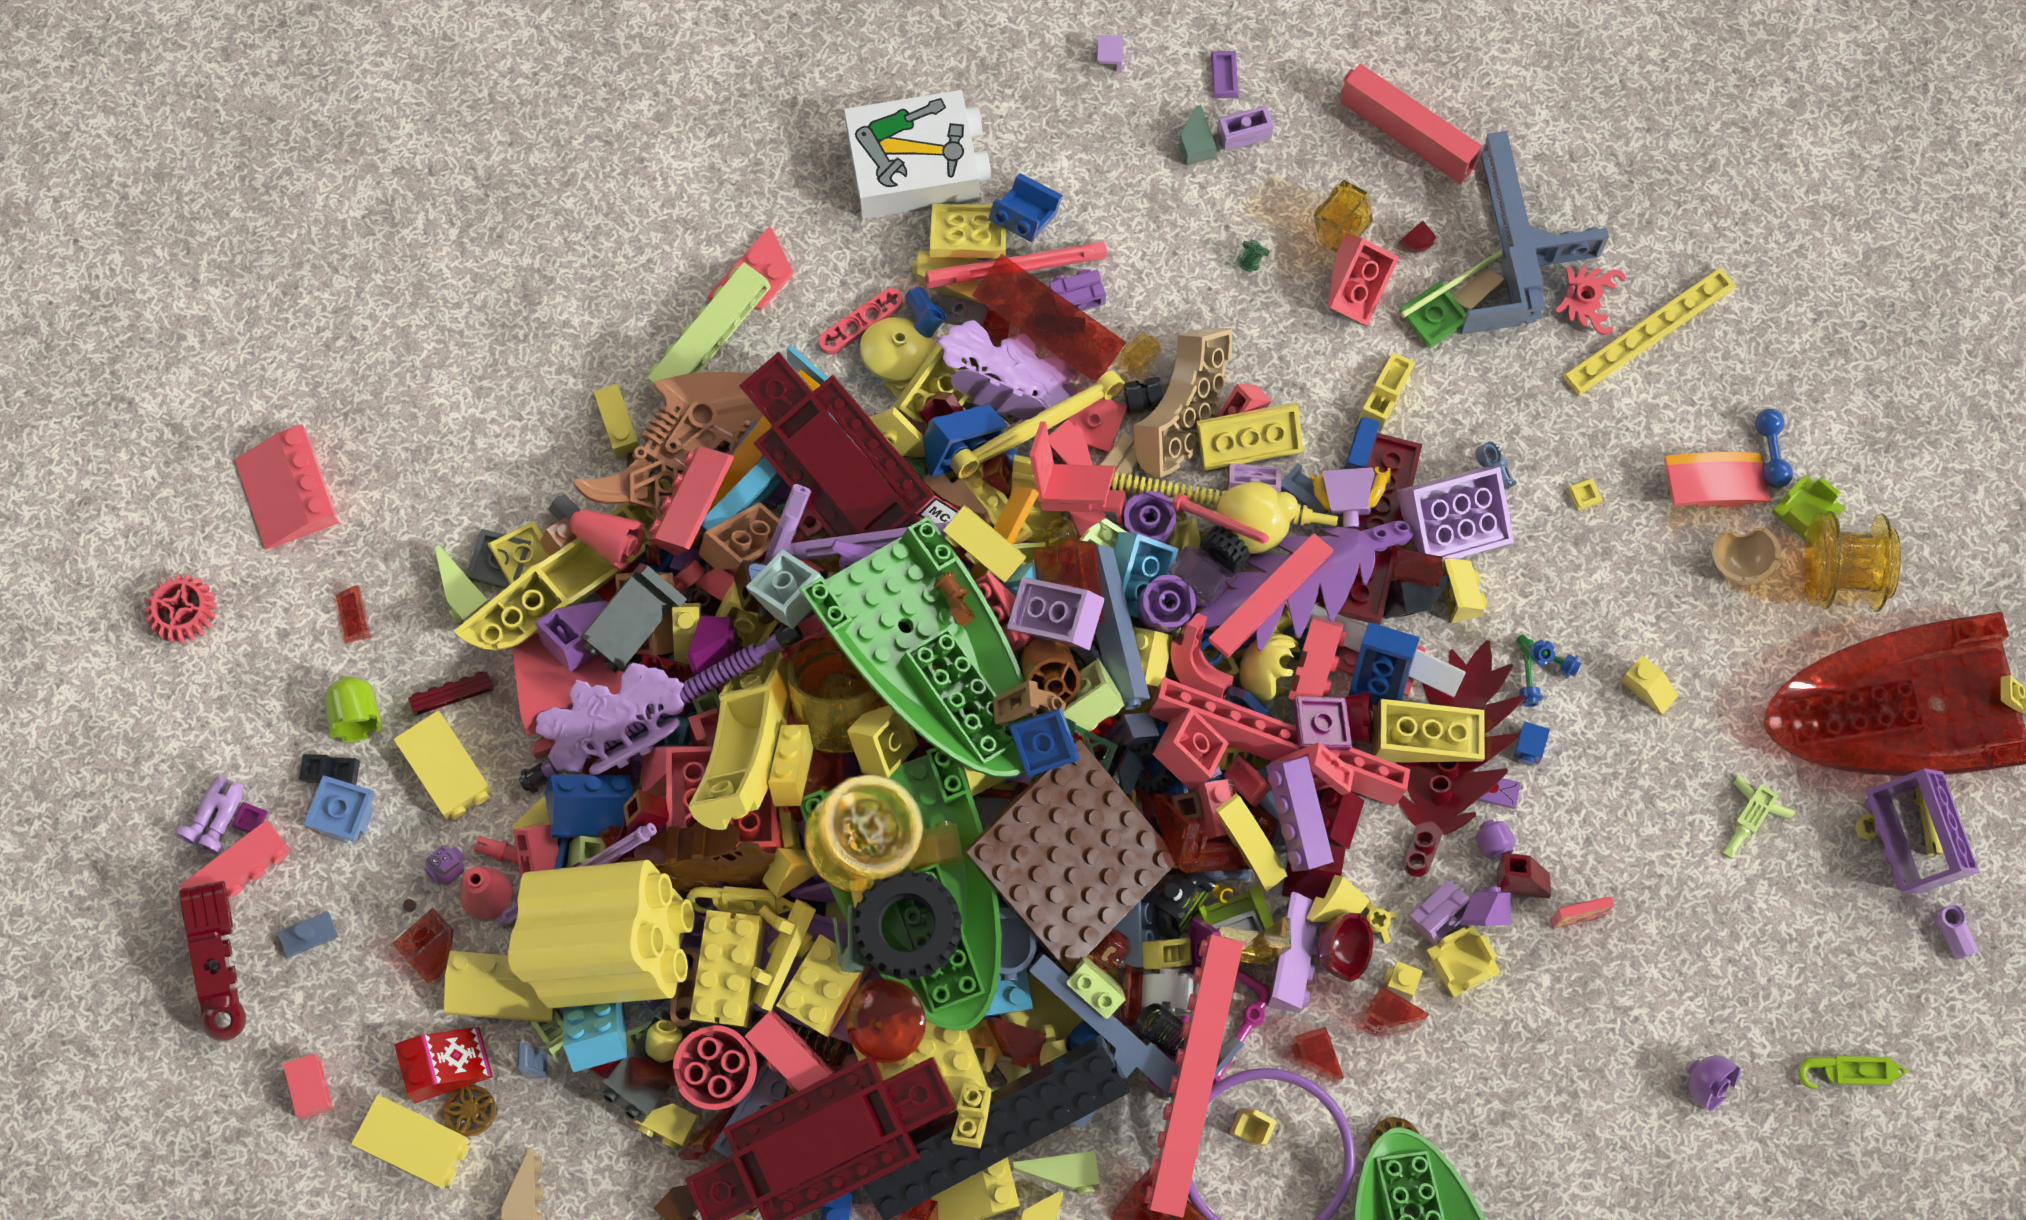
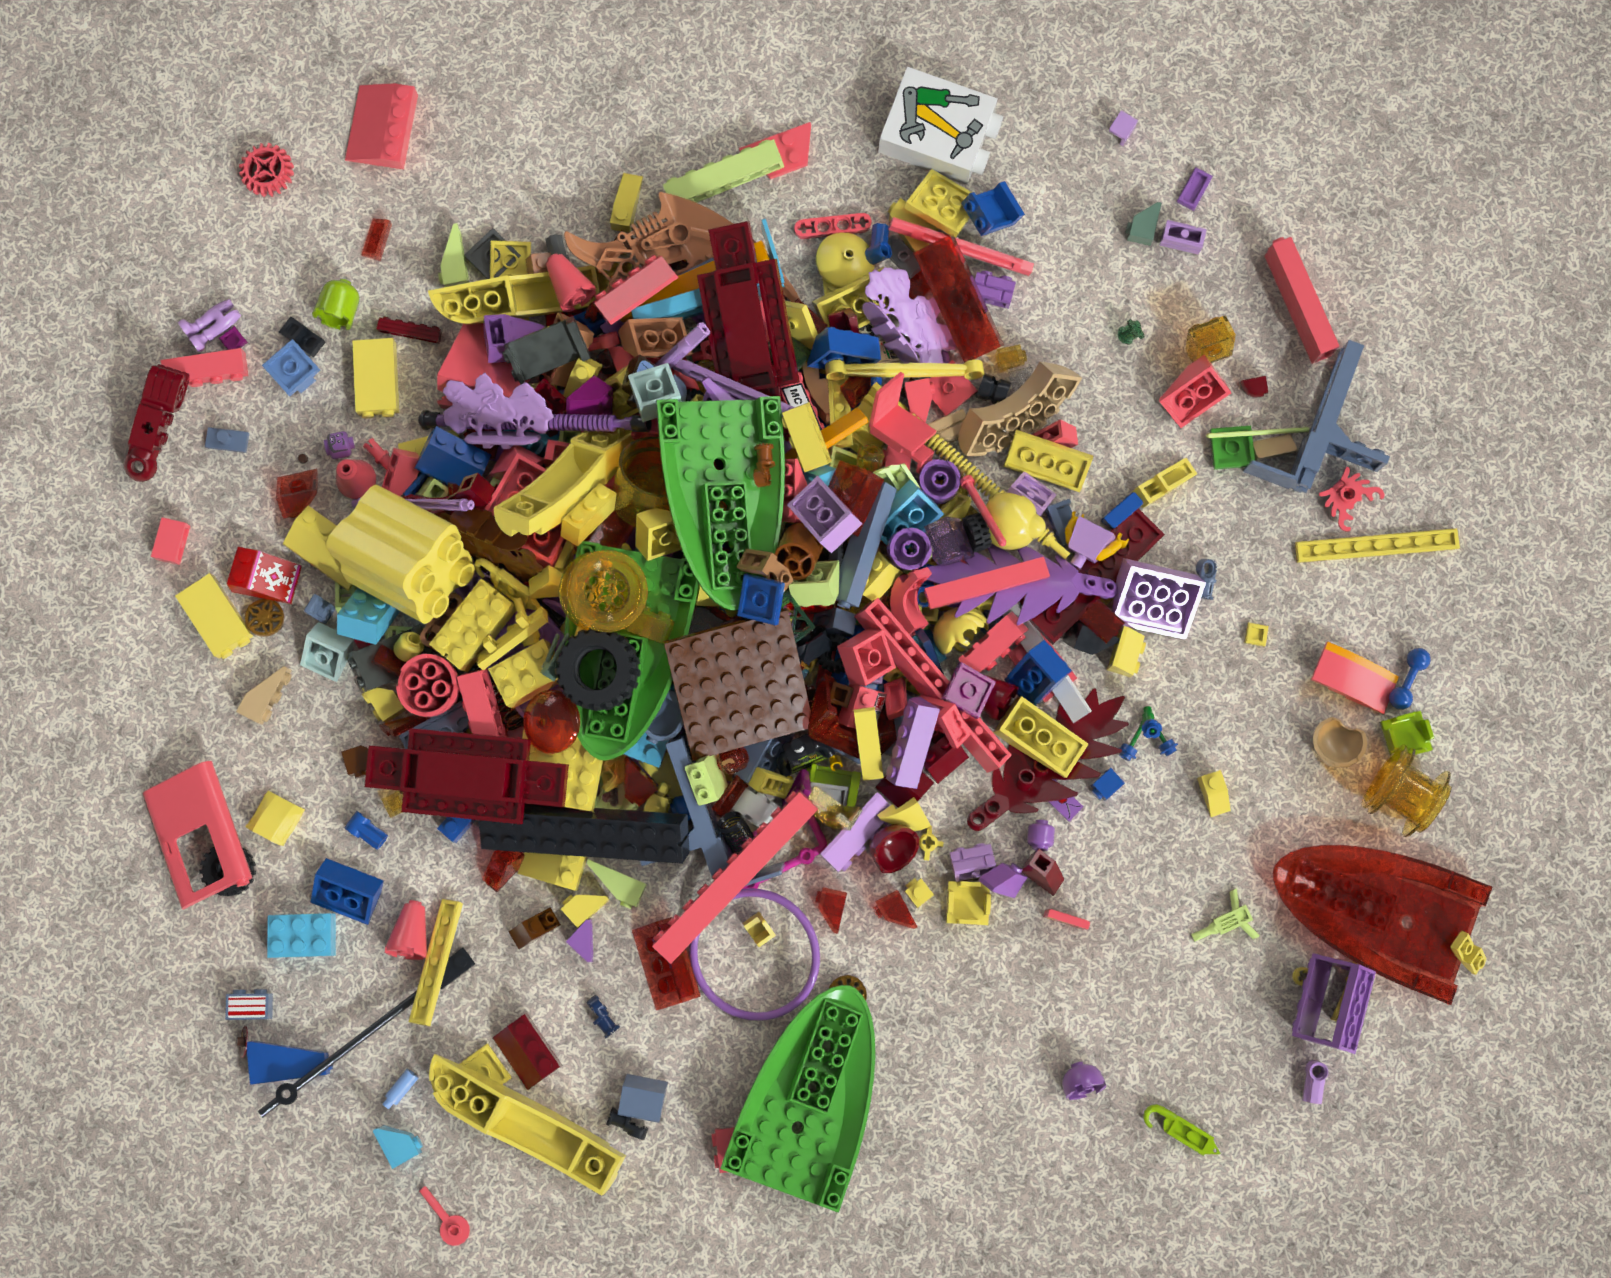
camera: 30 degrees right, 10 degrees up
(567, 1106) = (326, 651): none -> light aqua slope
(972, 1116) = (570, 818): light yellow slope -> none

